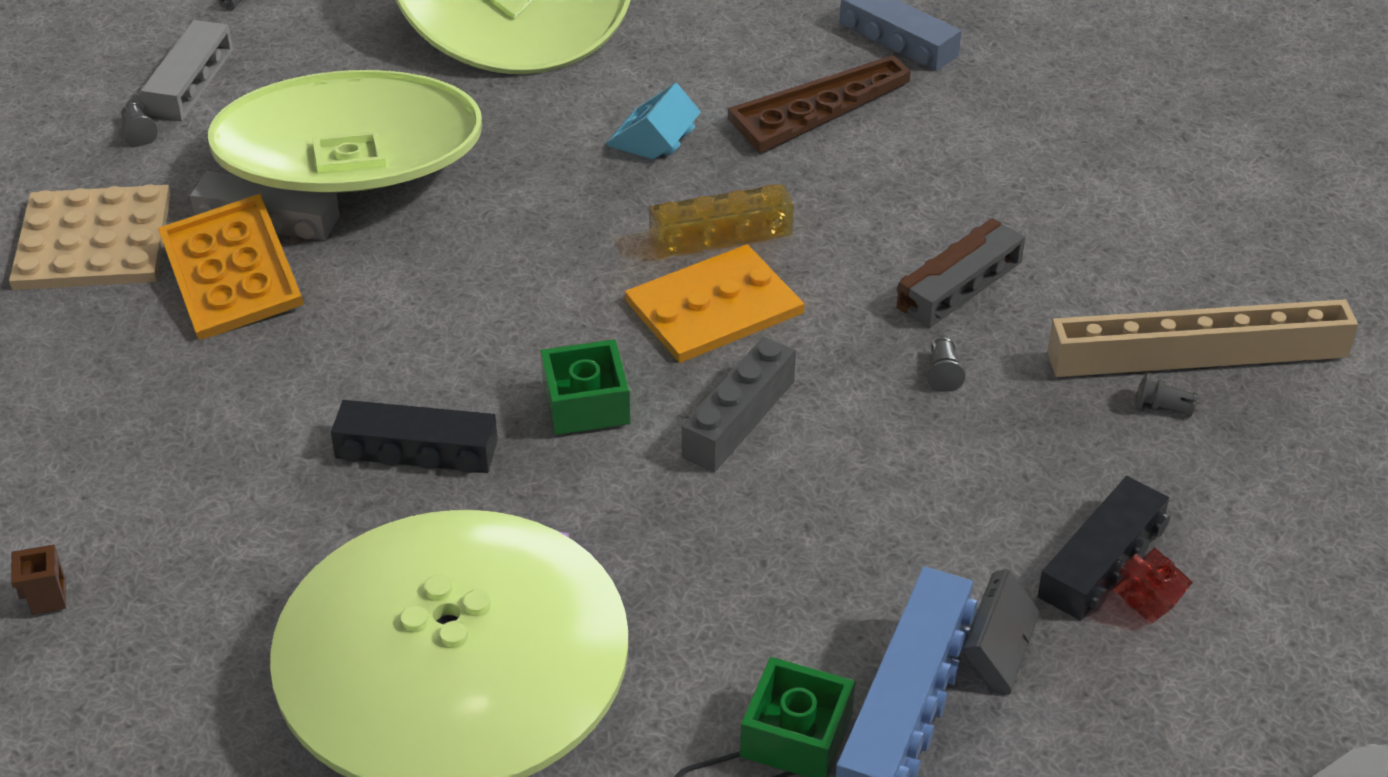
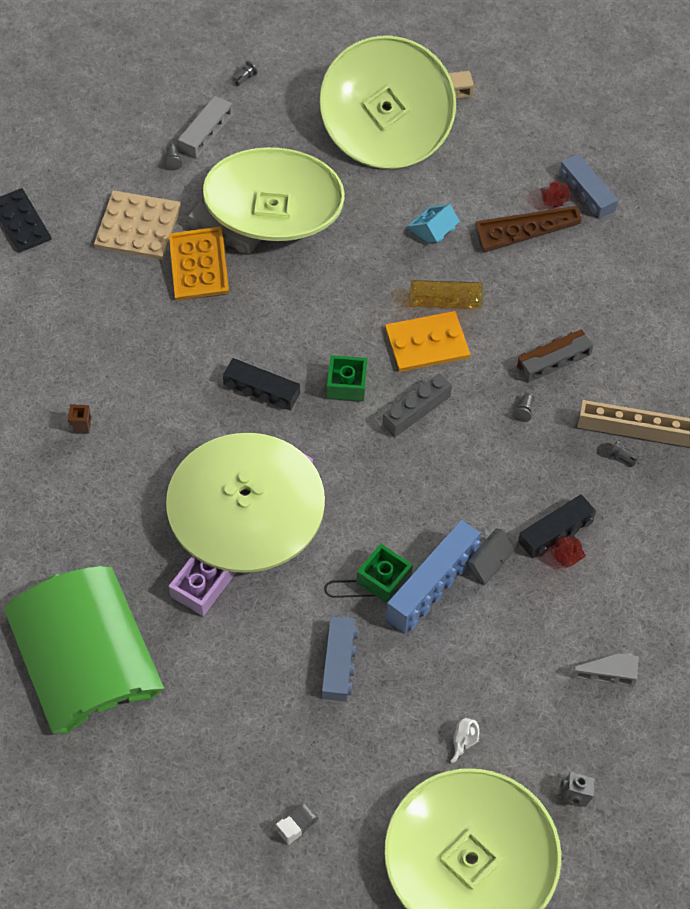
camera: 15 degrees right, 15 degrees up
(849, 45) = (555, 194): none -> clear red brick

